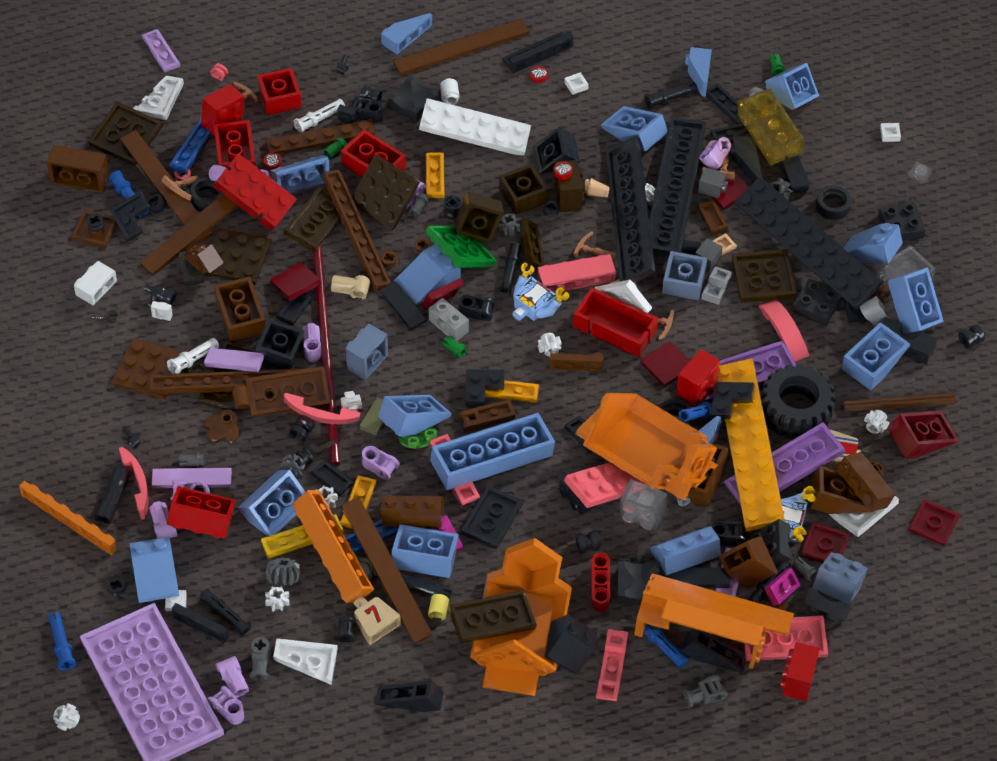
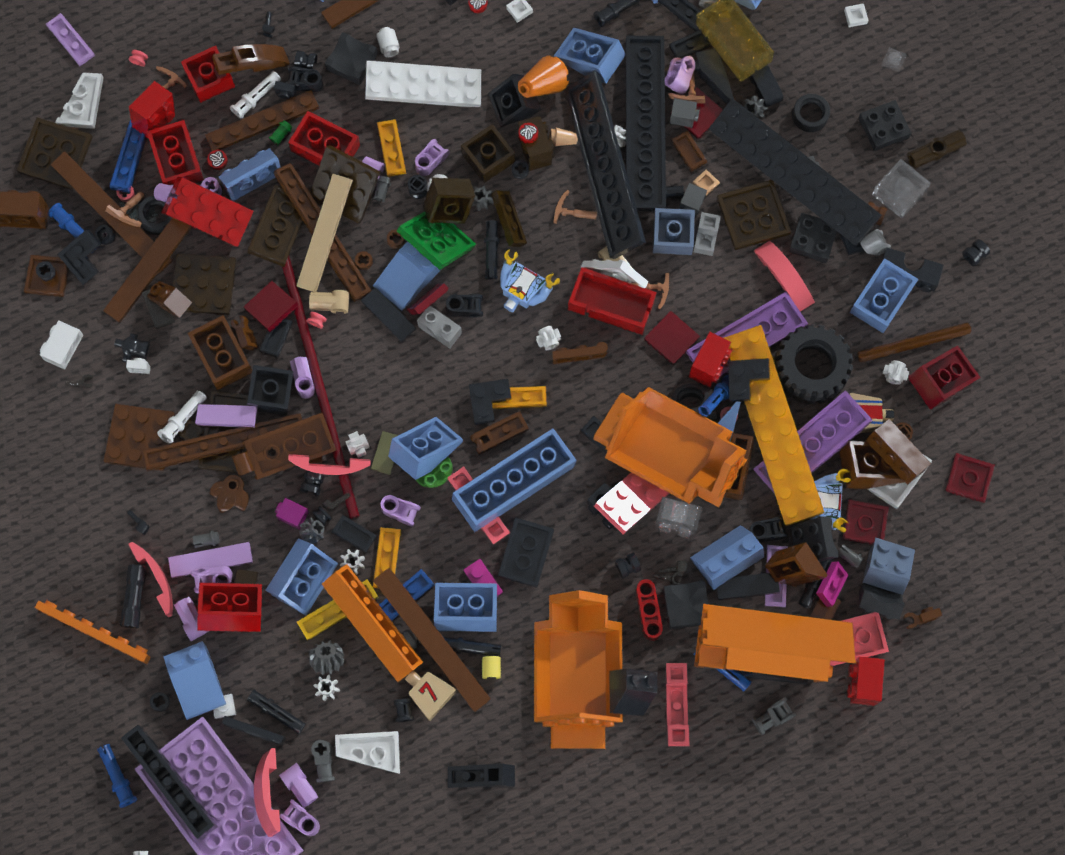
camera: 10 degrees left, 20 degrees up
(111, 646) = (169, 782): none -> black brick
(196, 689) = (268, 818): none -> coral slope
(265, 300) = (245, 336): none -> reddish brown plate
(276, 448) = (291, 513): none -> magenta brick
(319, 79) = (252, 56): none -> reddish brown slope
(335, 298) = (316, 320): none -> coral bush
(357, 227) = (324, 233): none -> tan tile
(366, 351) = (362, 382): sand blue brick -> none
(412, 511) = (444, 561): reddish brown slope -> none
(455, 347) = (451, 356): green pin -> none
(470, 183) = (433, 155): none -> lavender piece
(492, 616) = (548, 673): dark brown tile -> none
(577, 273) = (561, 247): coral brick -> none
(587, 135) = (544, 78): none -> orange cone
(869, 630) = (927, 615): none -> reddish brown plate
(875, 244) = (861, 163): medium blue slope -> none
(915, 300) = (915, 225): medium blue slope -> none
(948, 247) = (946, 144): none -> dark brown piece

